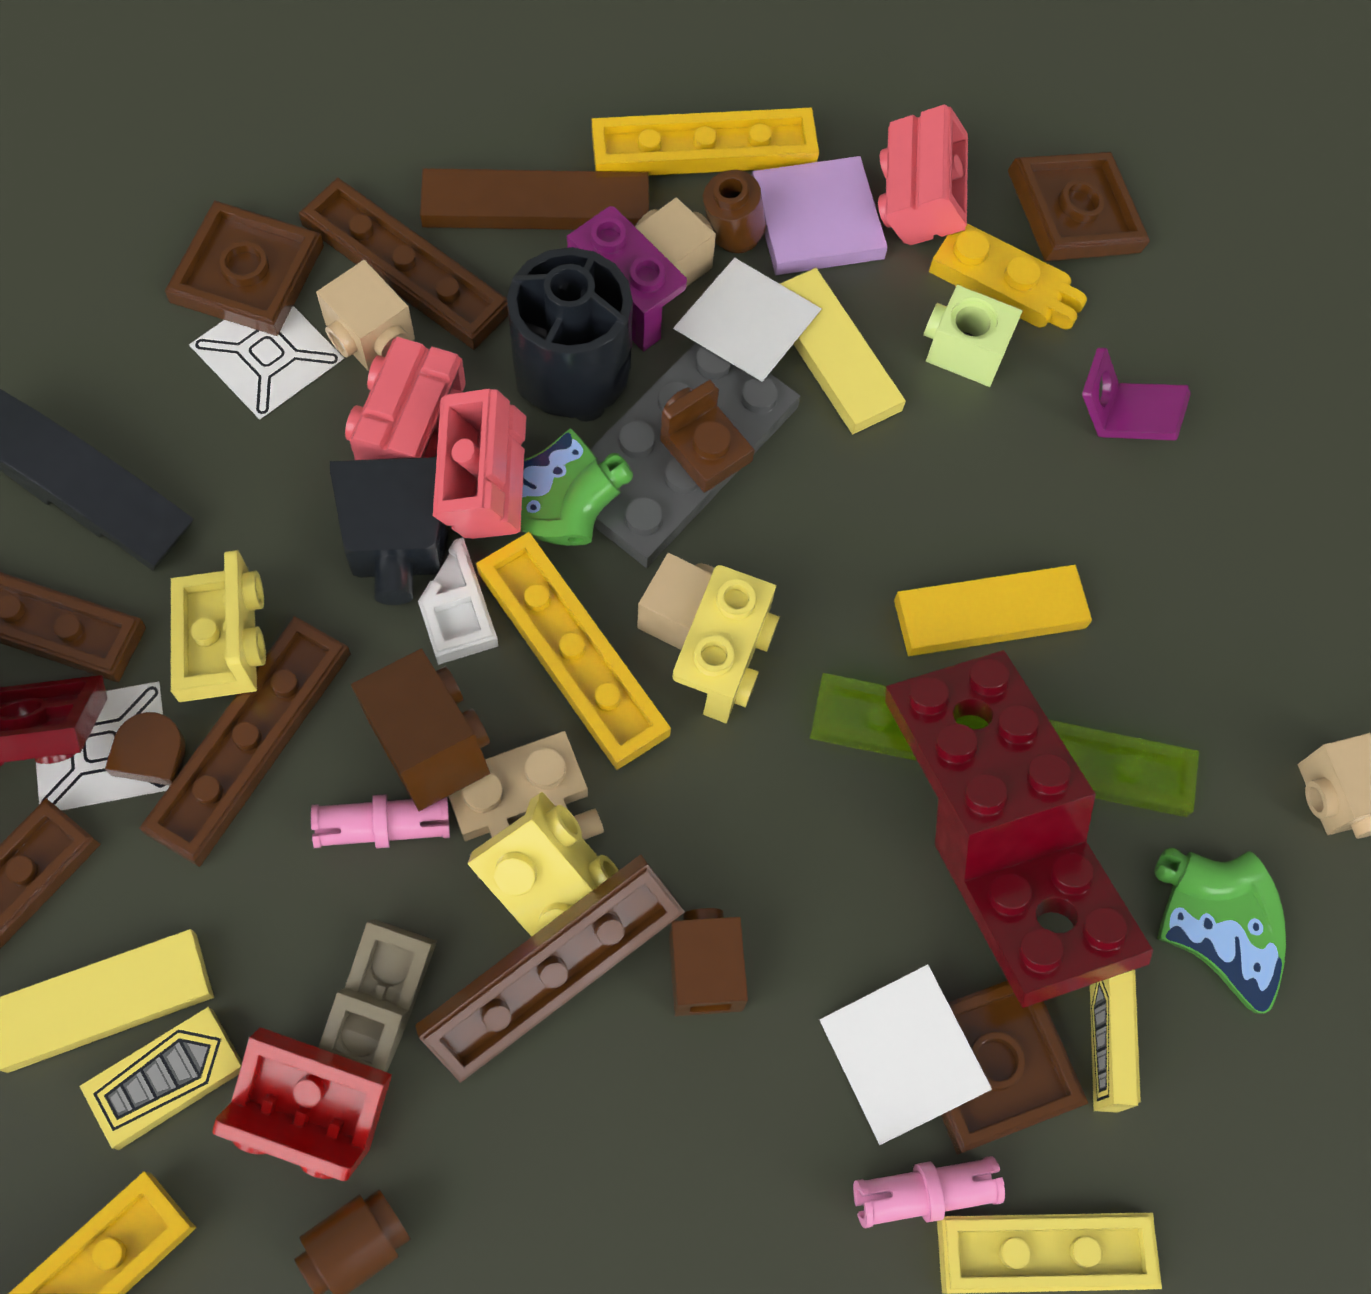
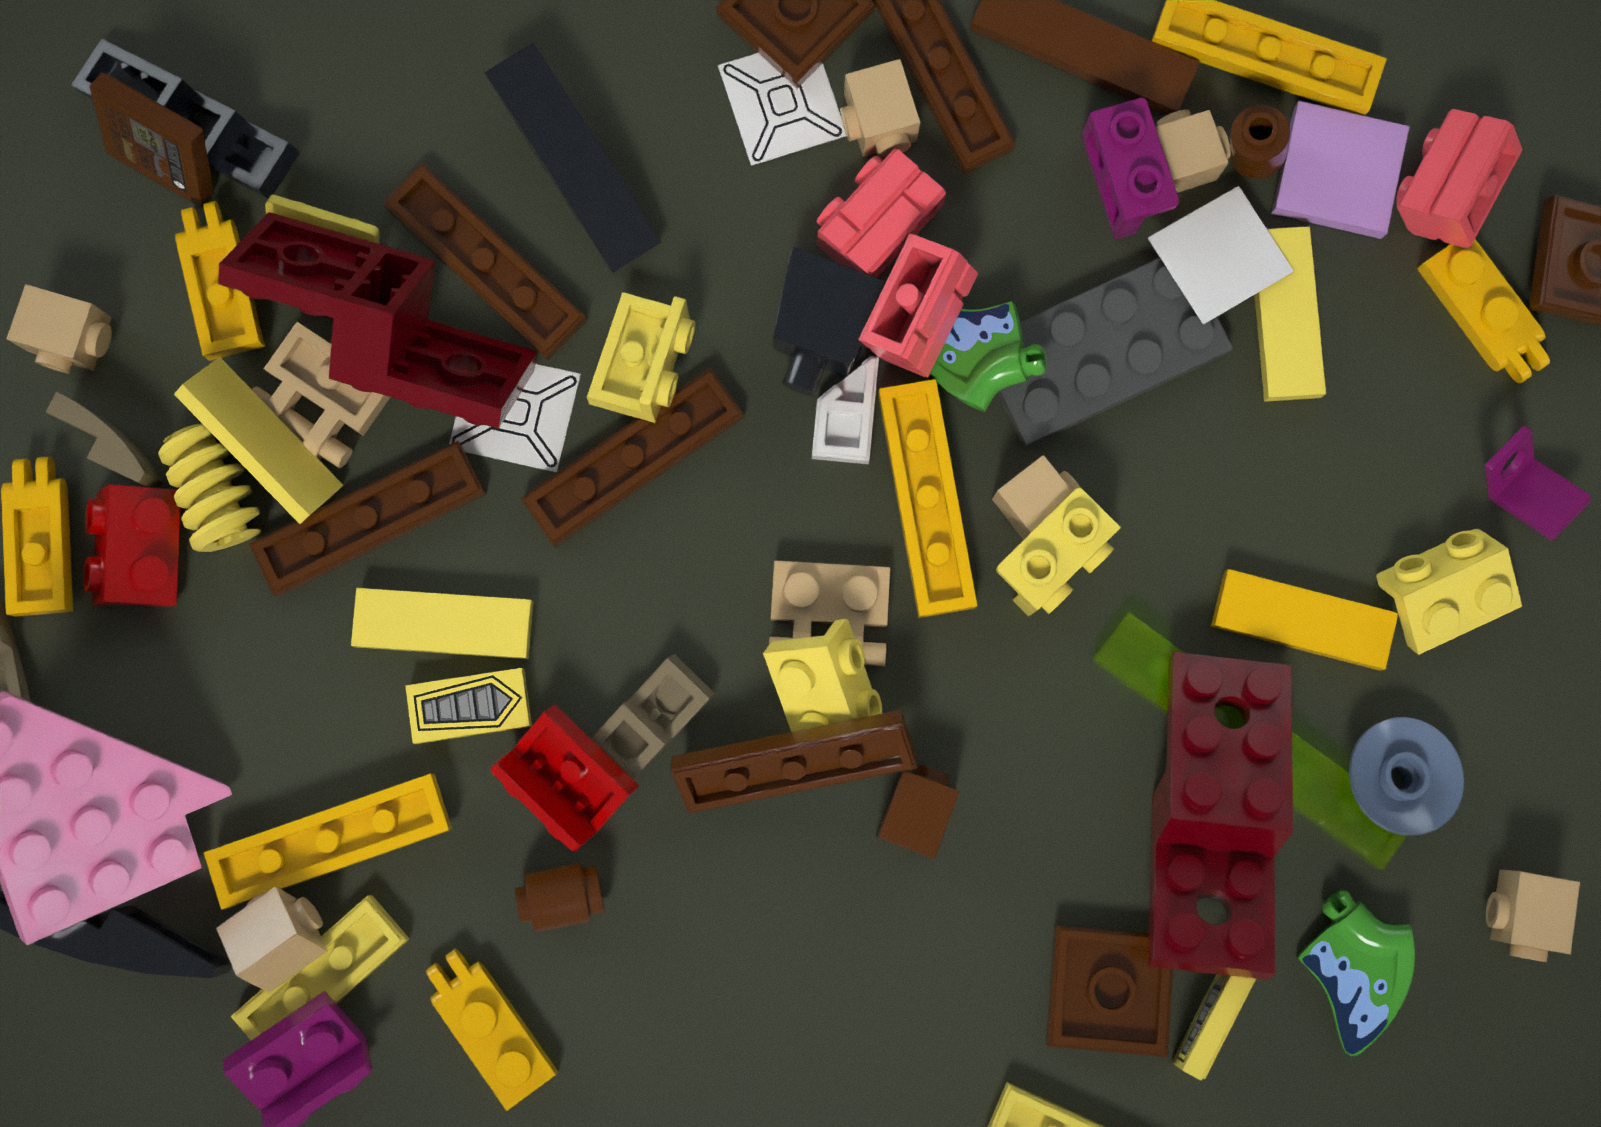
camera: 30 degrees right, 15 degrees up
(147, 749) = (551, 433): reddish brown tile -> none
(378, 822) = (710, 577): bright pink pin -> none
(423, 728) = (774, 518): reddish brown brick -> none
(571, 332) = (1051, 212): black cylinder -> none
(703, 436) = (1124, 359): reddish brown bracket -> none
(905, 1054) = (1041, 952): white sticker -> none
(928, 1192) = (1008, 1062): bright pink pin -> none
(983, 317) = (1443, 356): yellowish green brick -> none
(1111, 522) = (1451, 588): none -> light yellow bracket
(1177, 691) = (1429, 770): none -> sand blue dish

